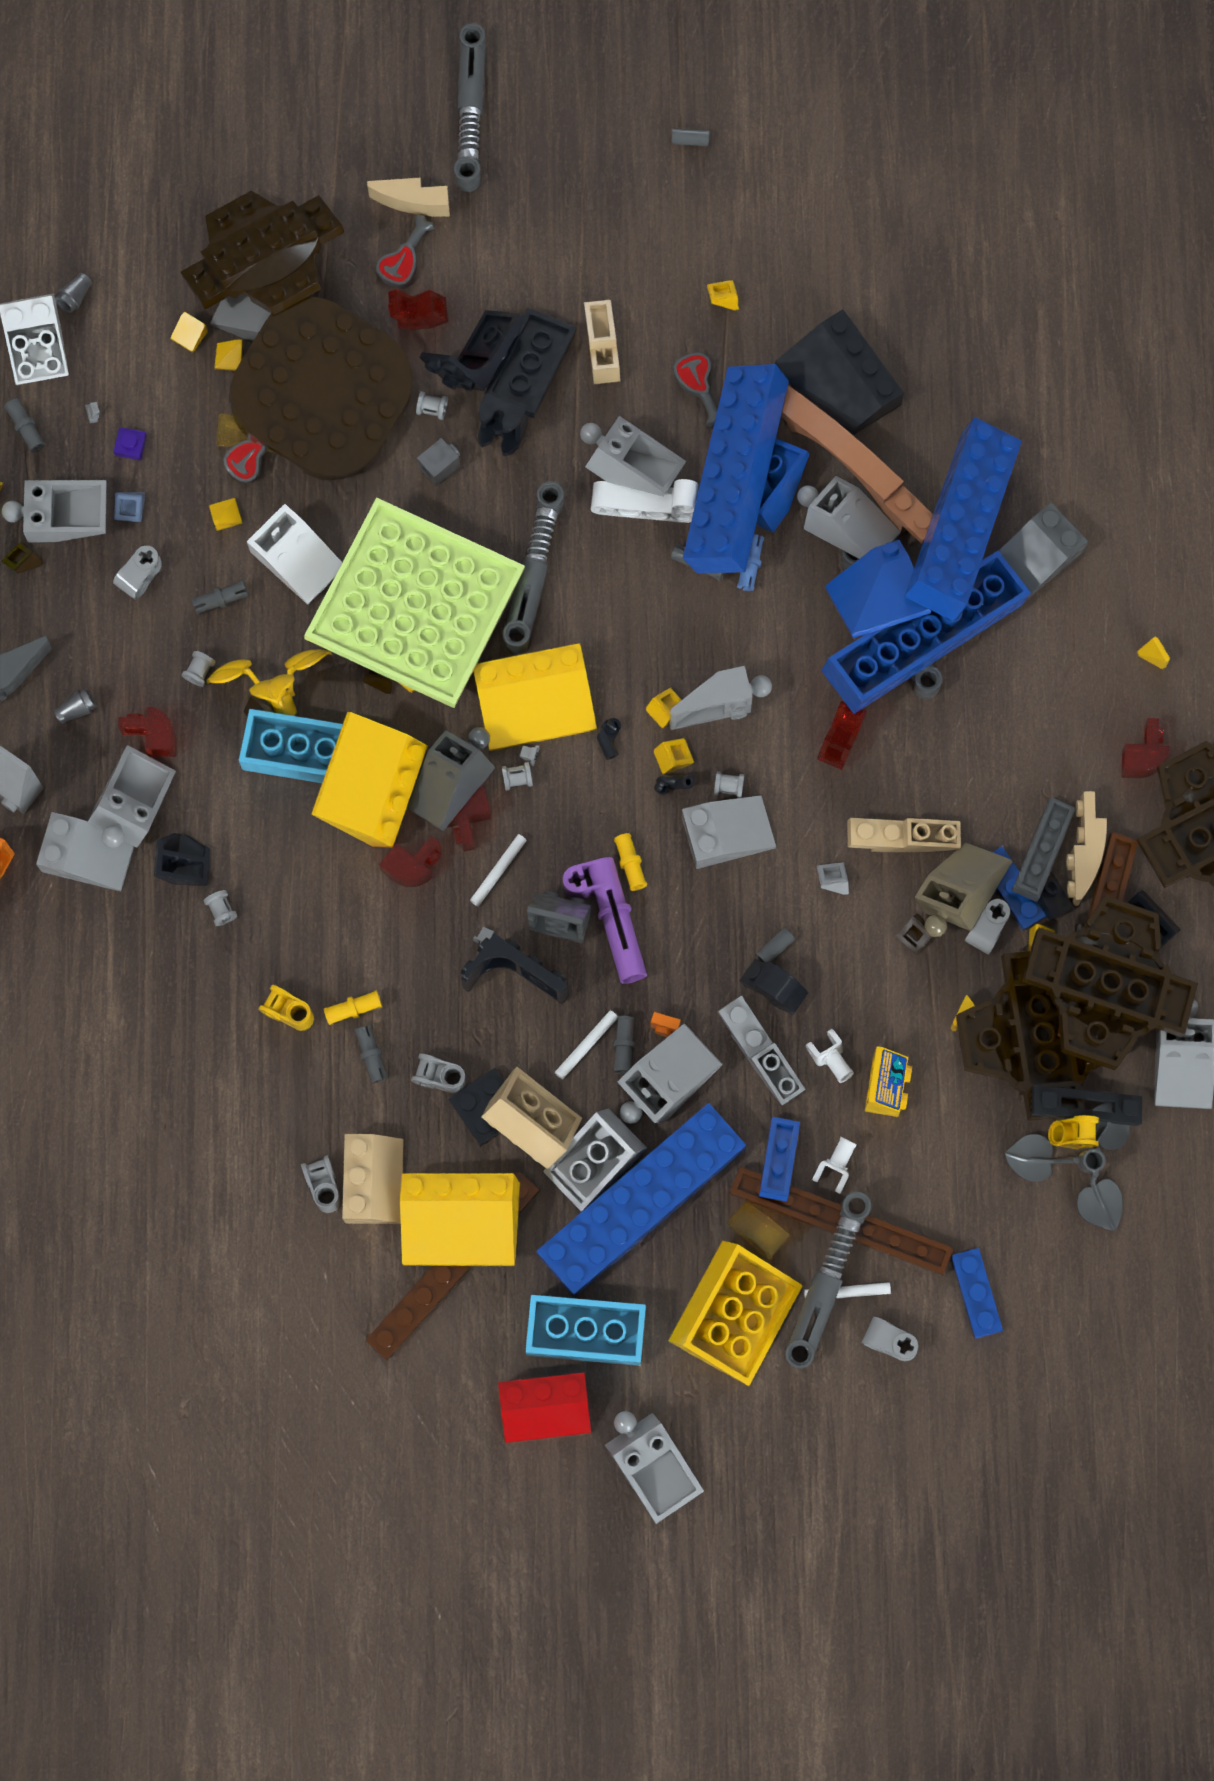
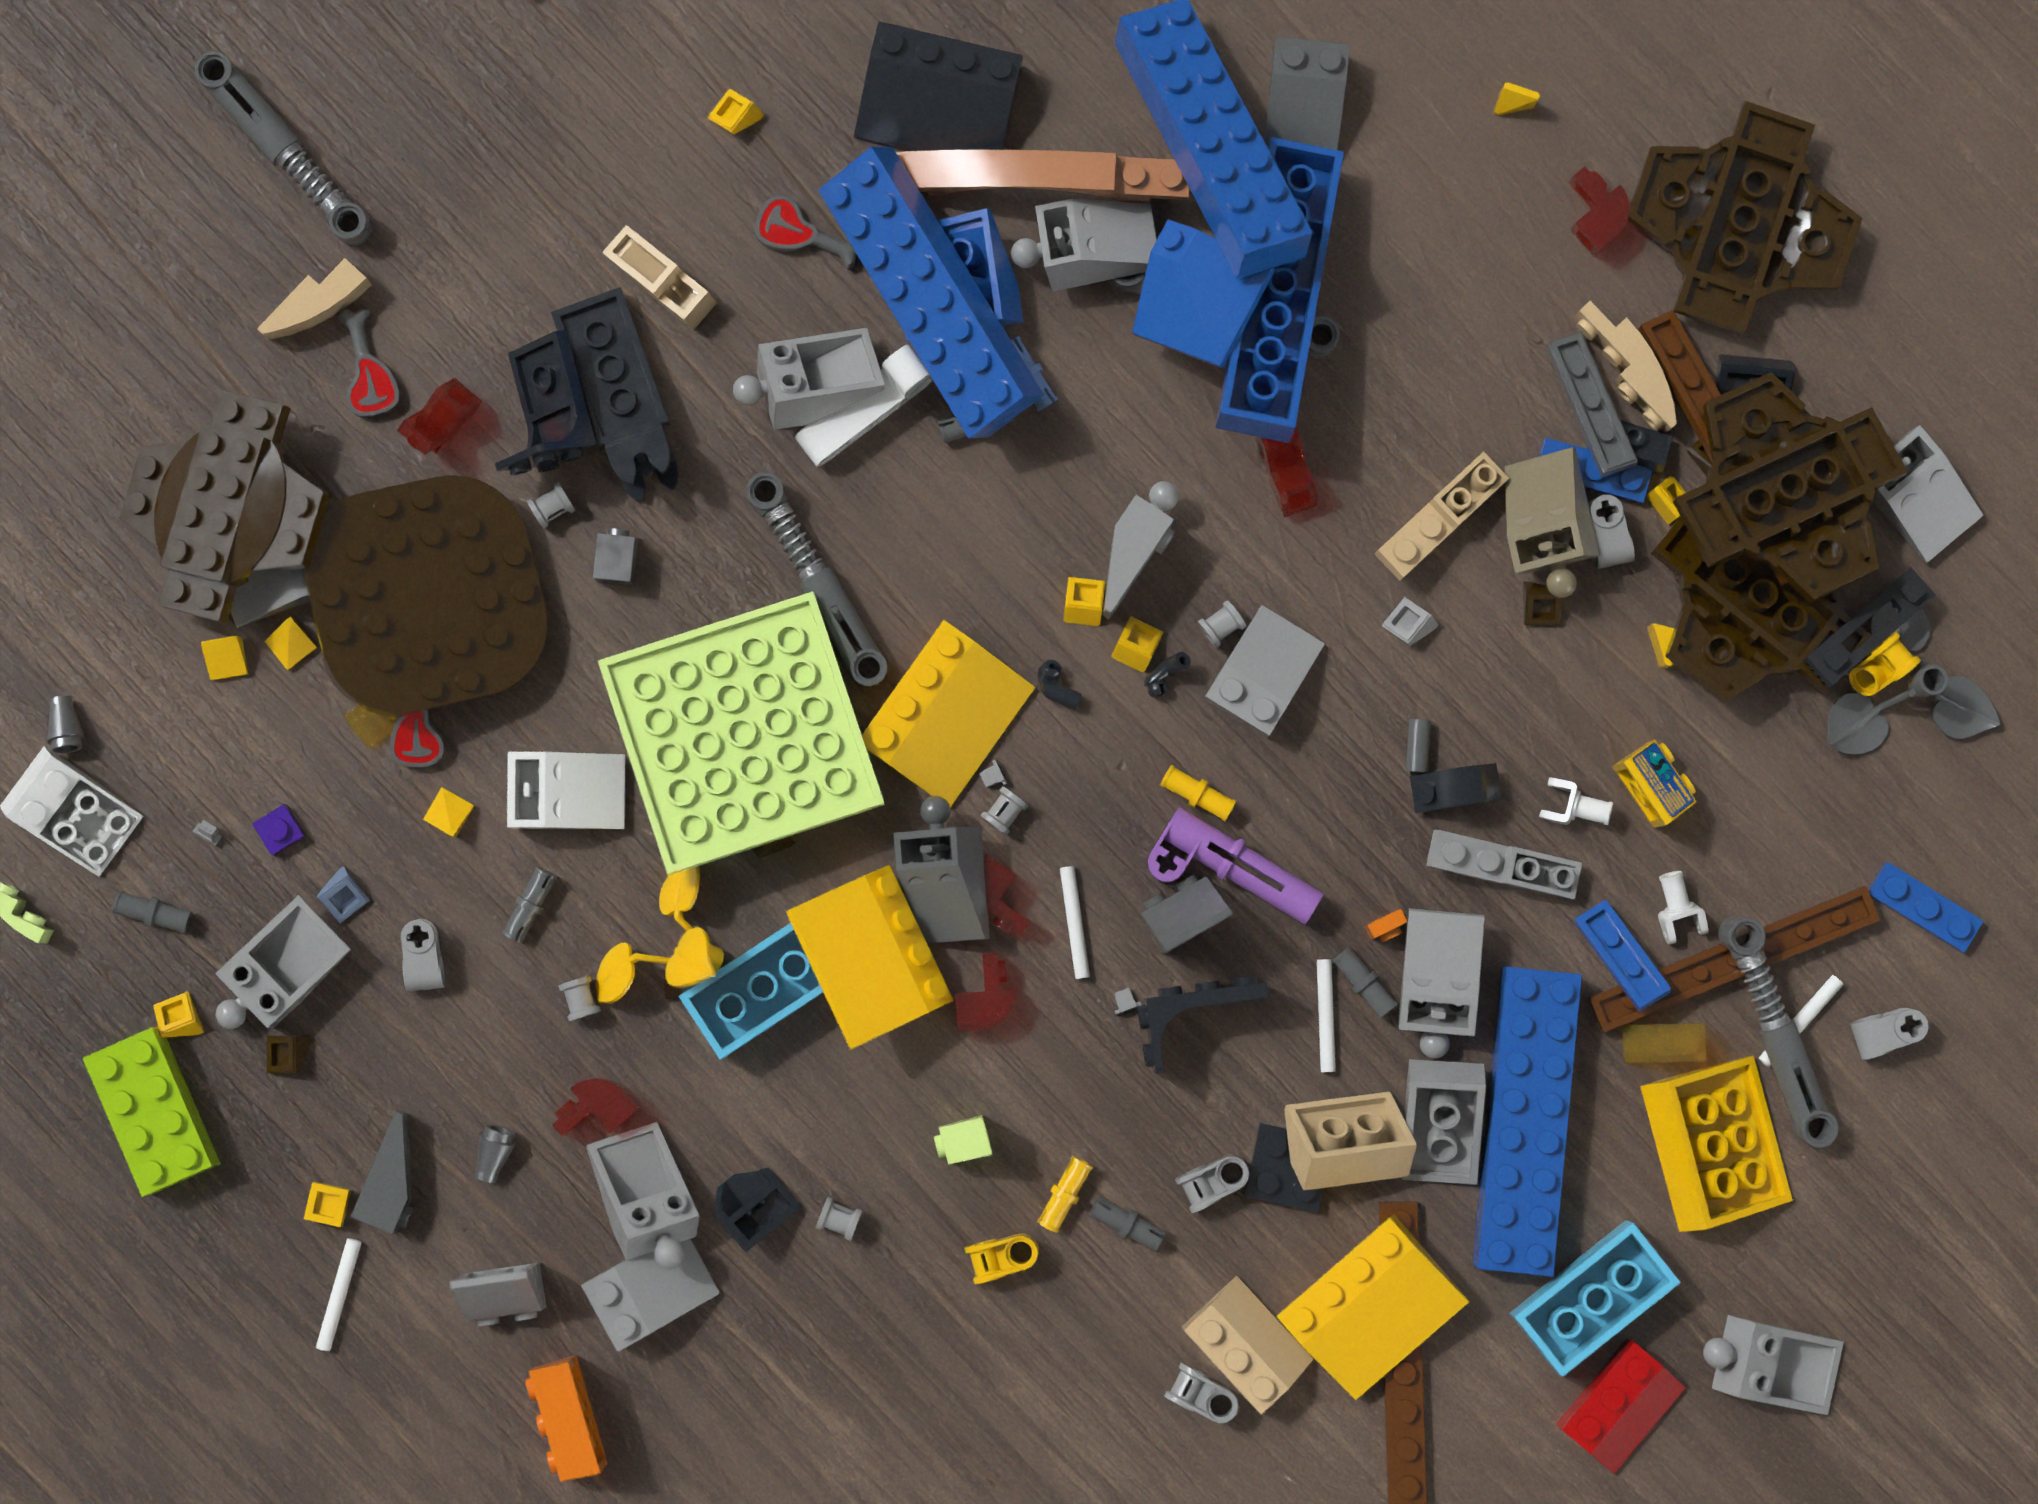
camera: 50 degrees left, 10 degrees up
(327, 926) = (963, 1140): none -> yellowish green slope

